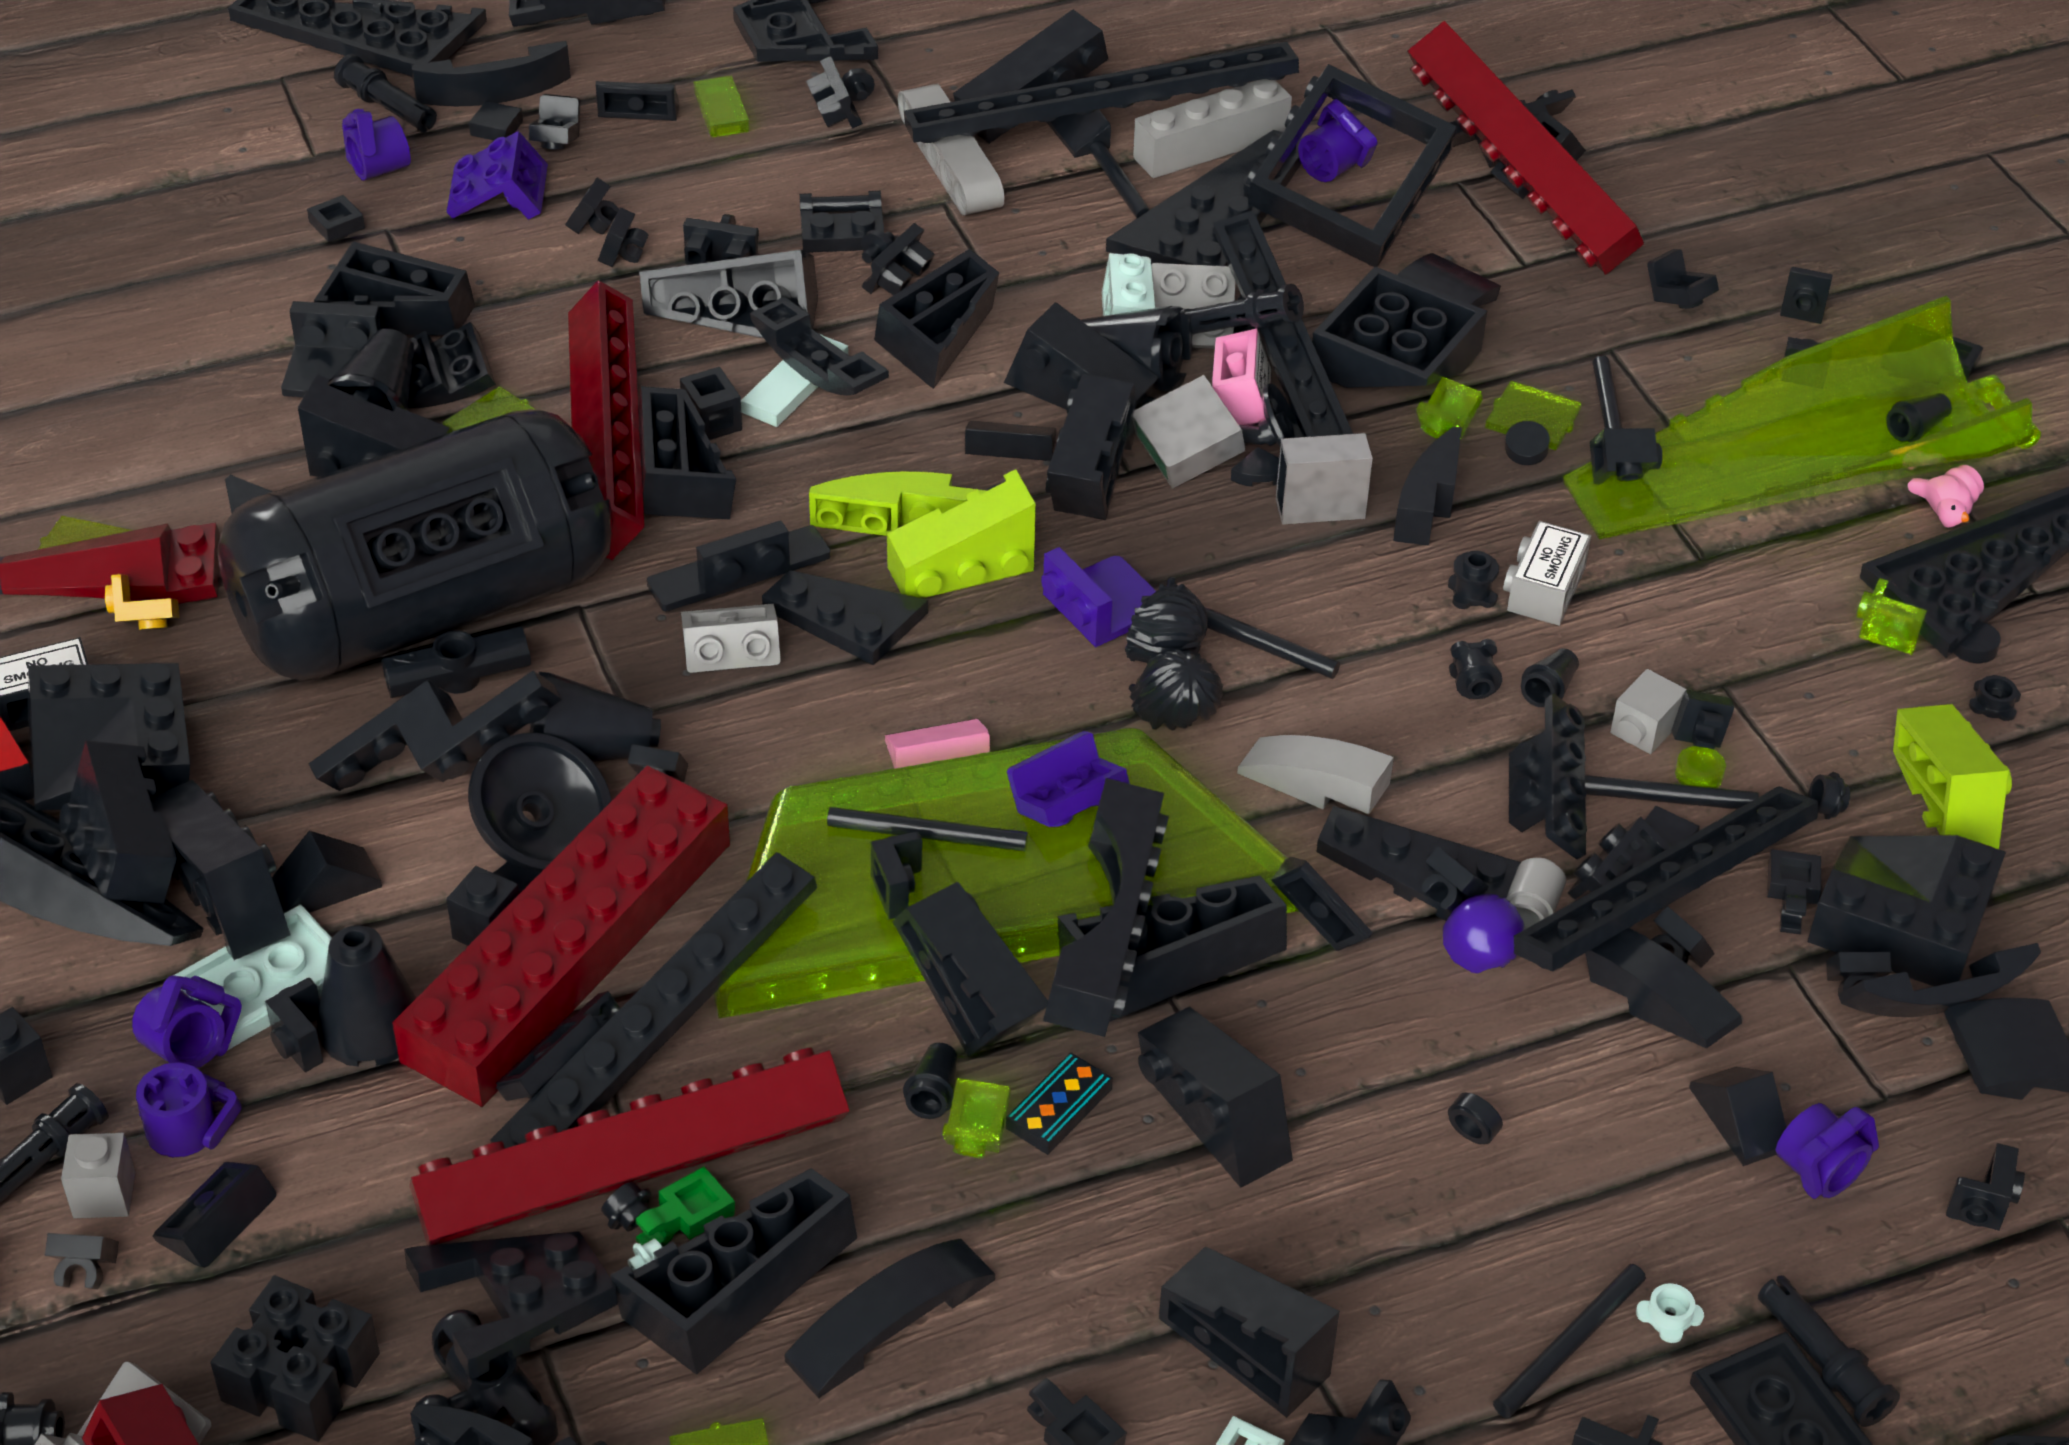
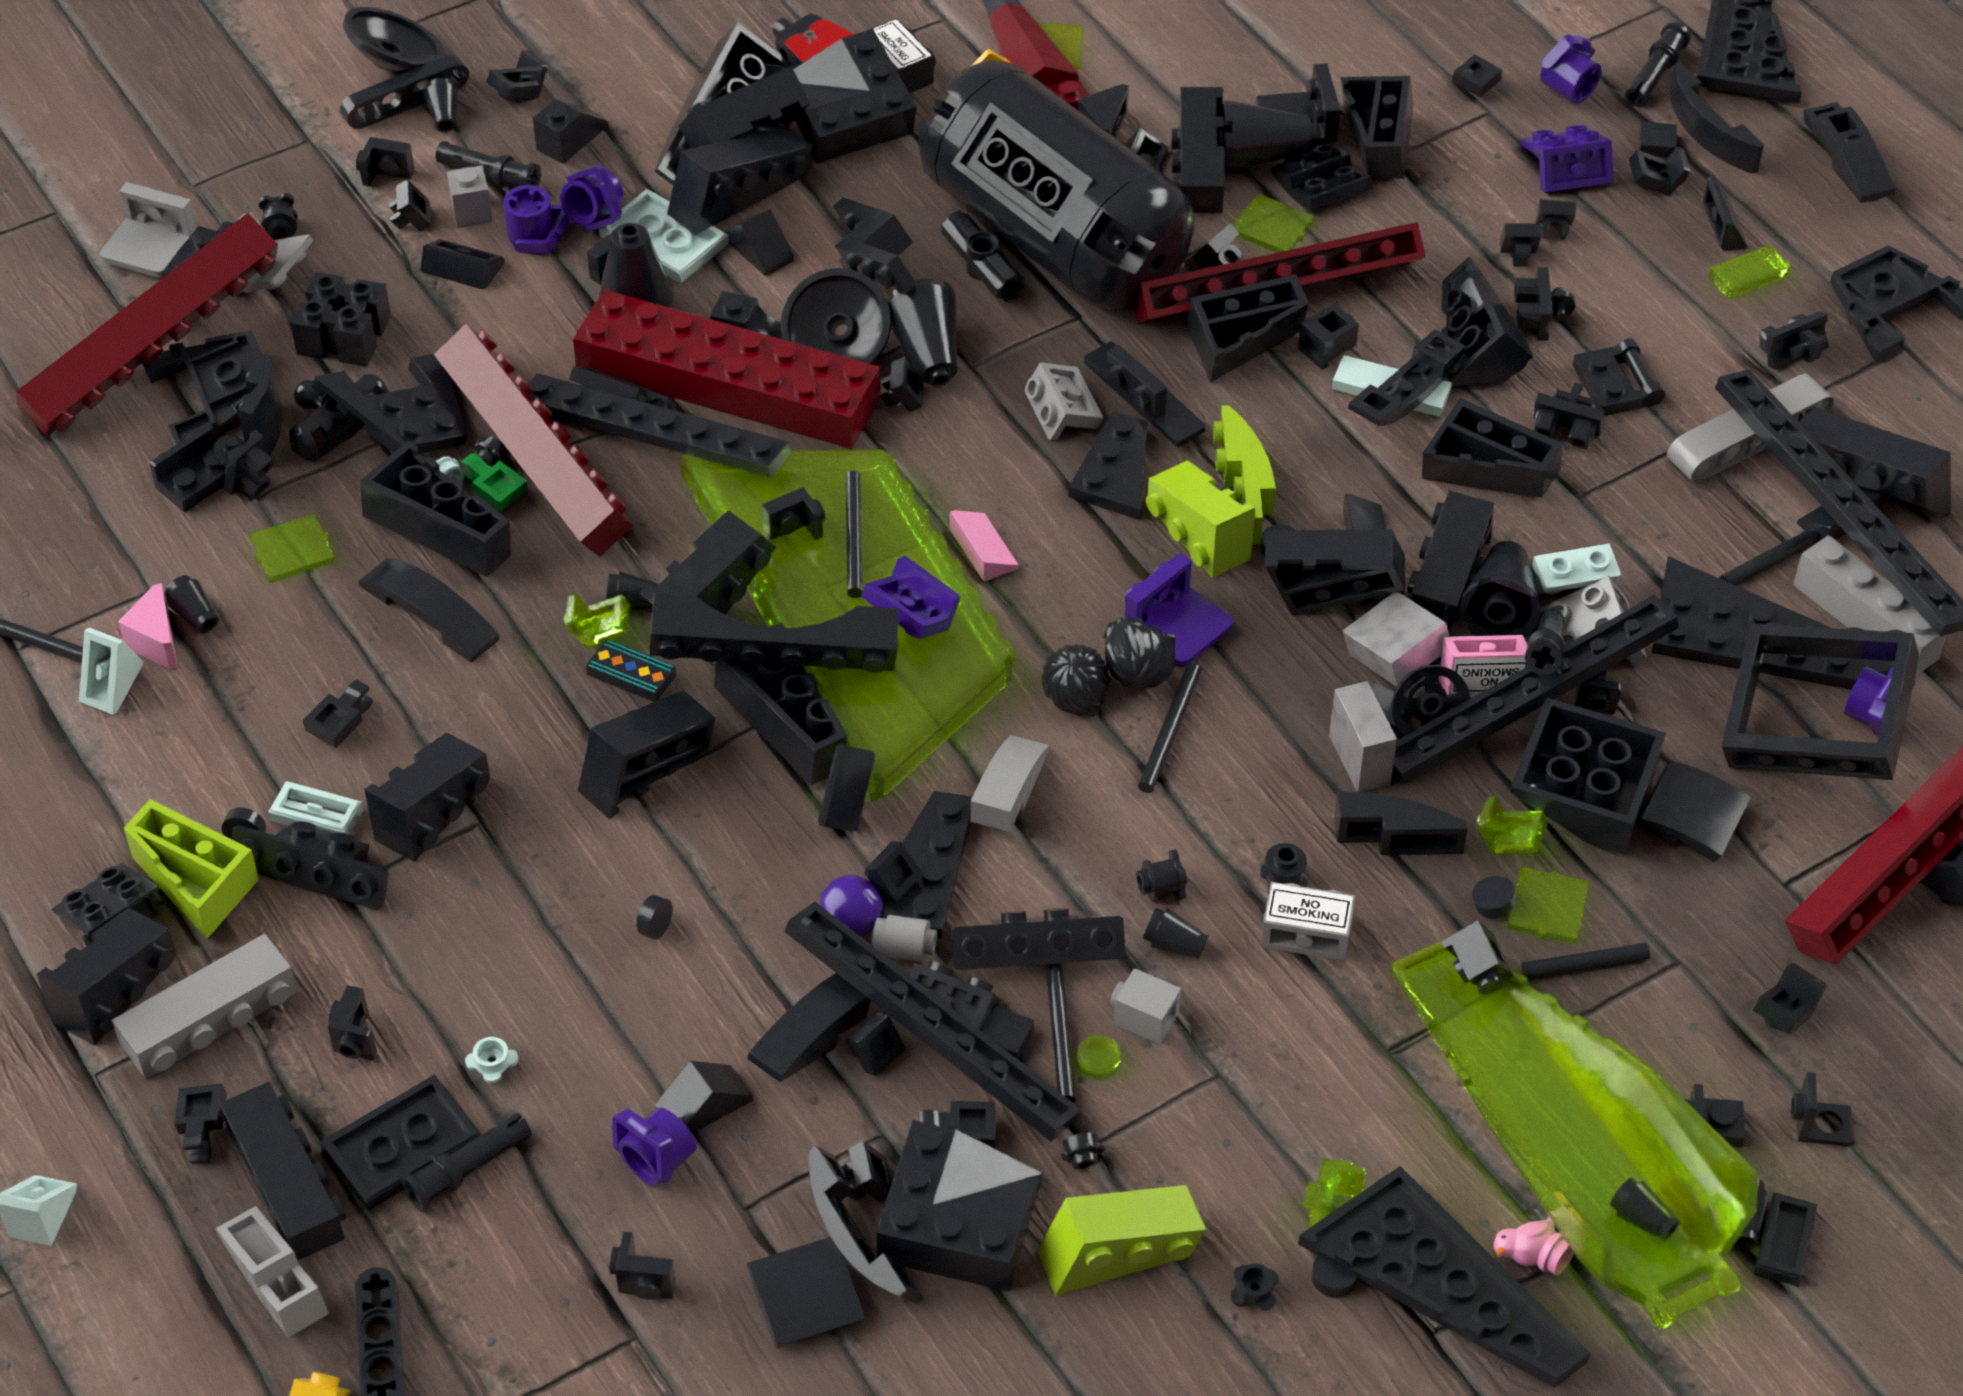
camera: 80 degrees right, 5 degrees up
(1569, 1341) = (460, 999): black bar -> none
(1703, 719) = (1140, 1044): black tile -> none

